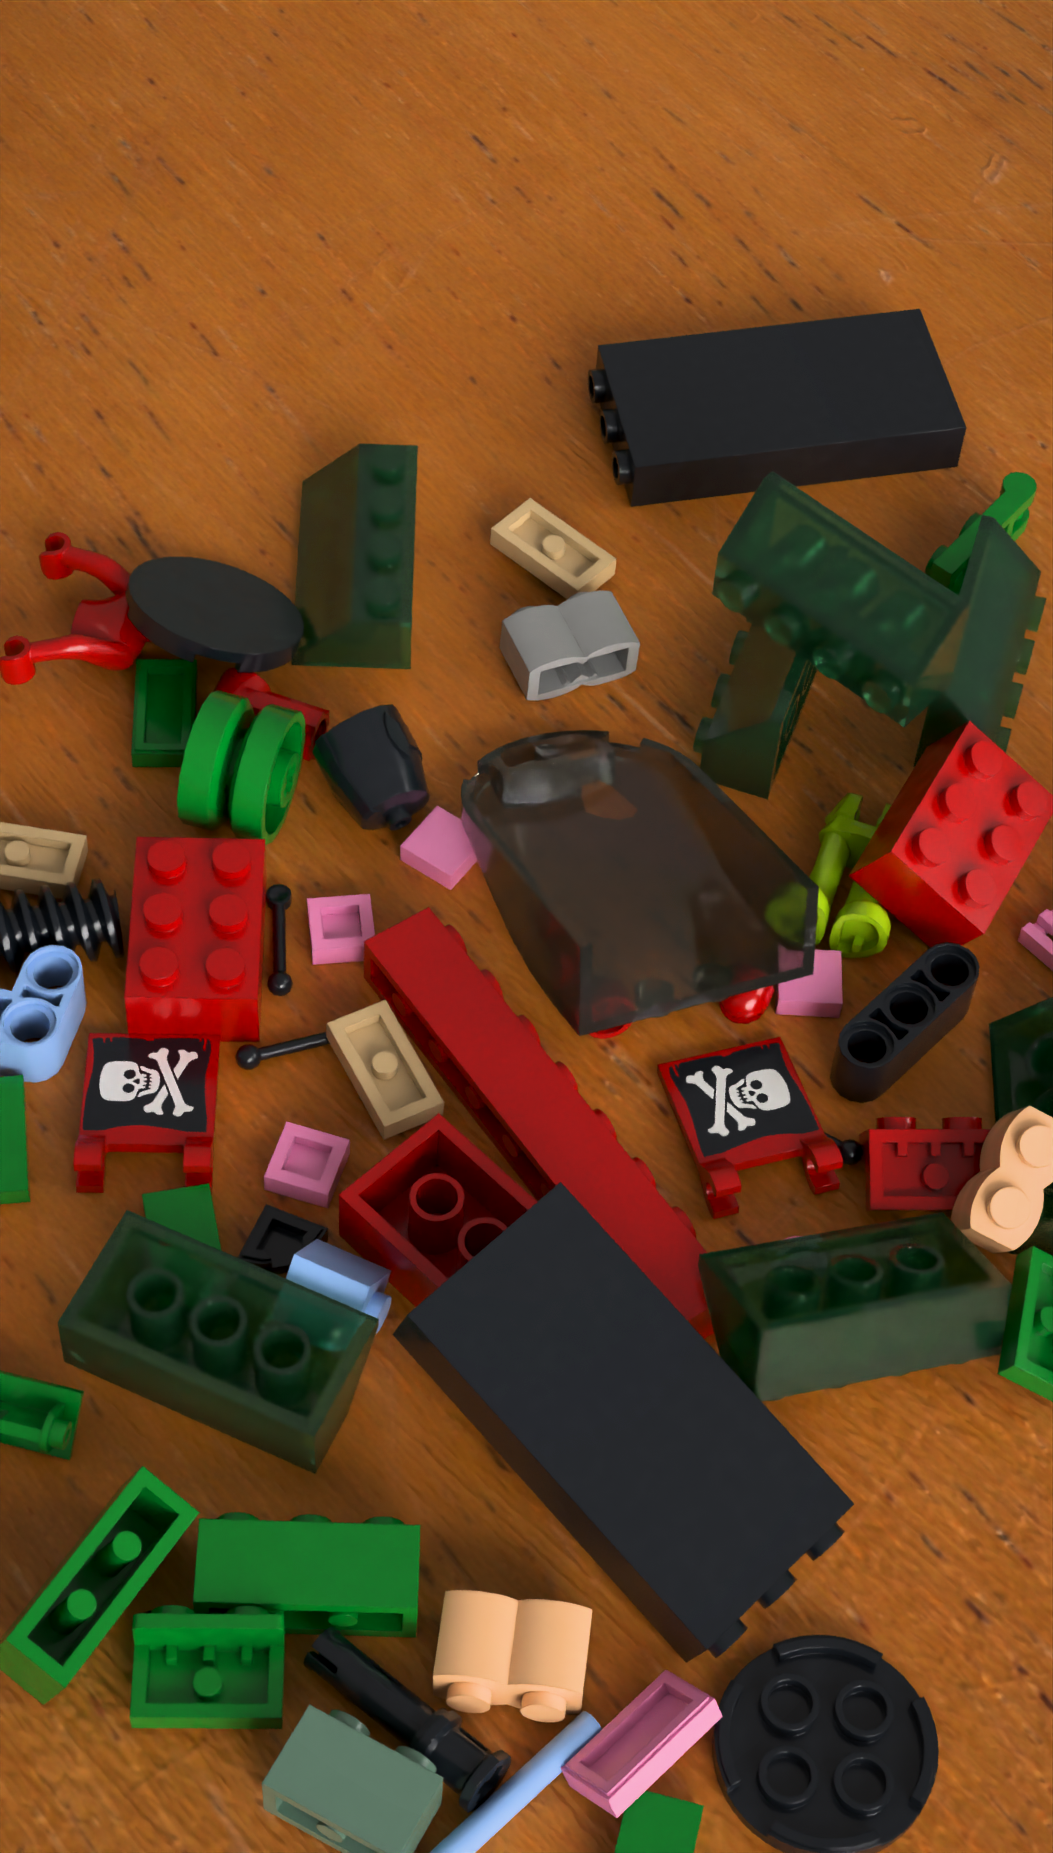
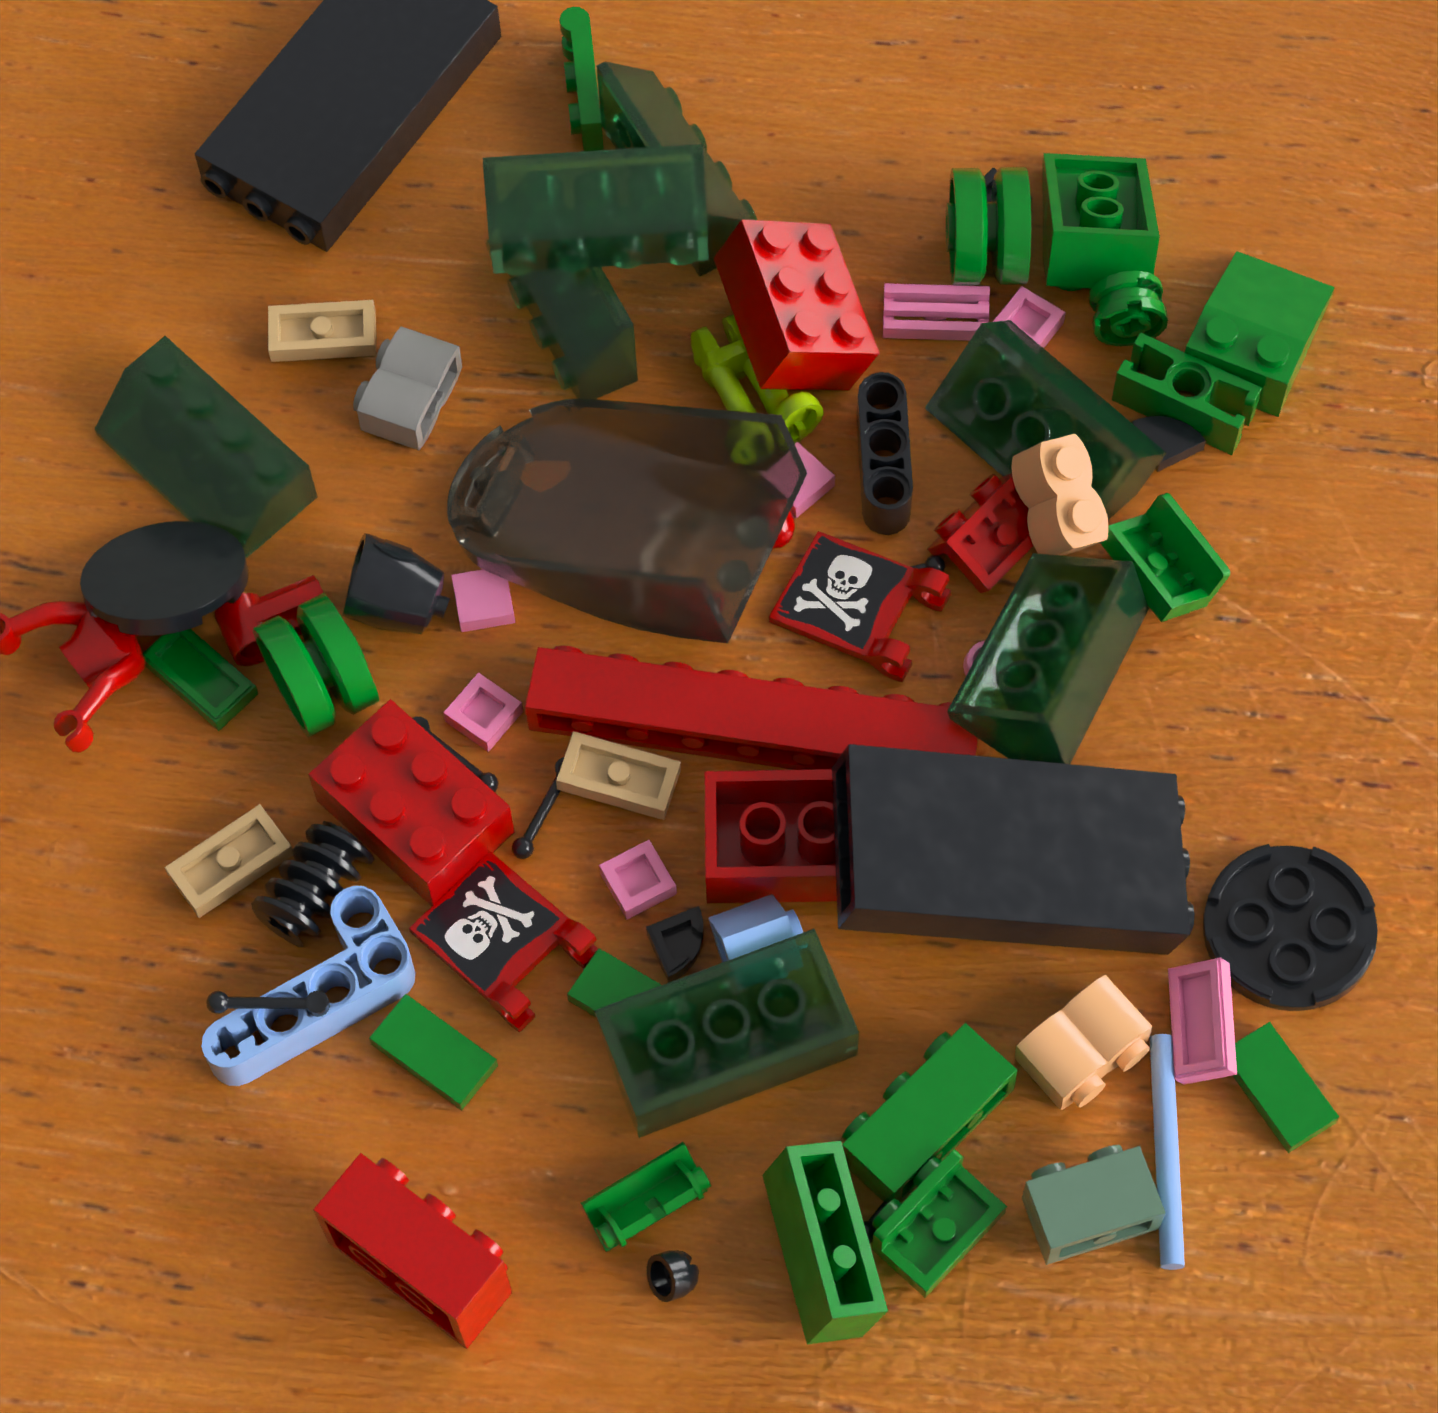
camera: 40 degrees left, 10 degrees up
(438, 1735) = (1068, 1136): black pin -> none

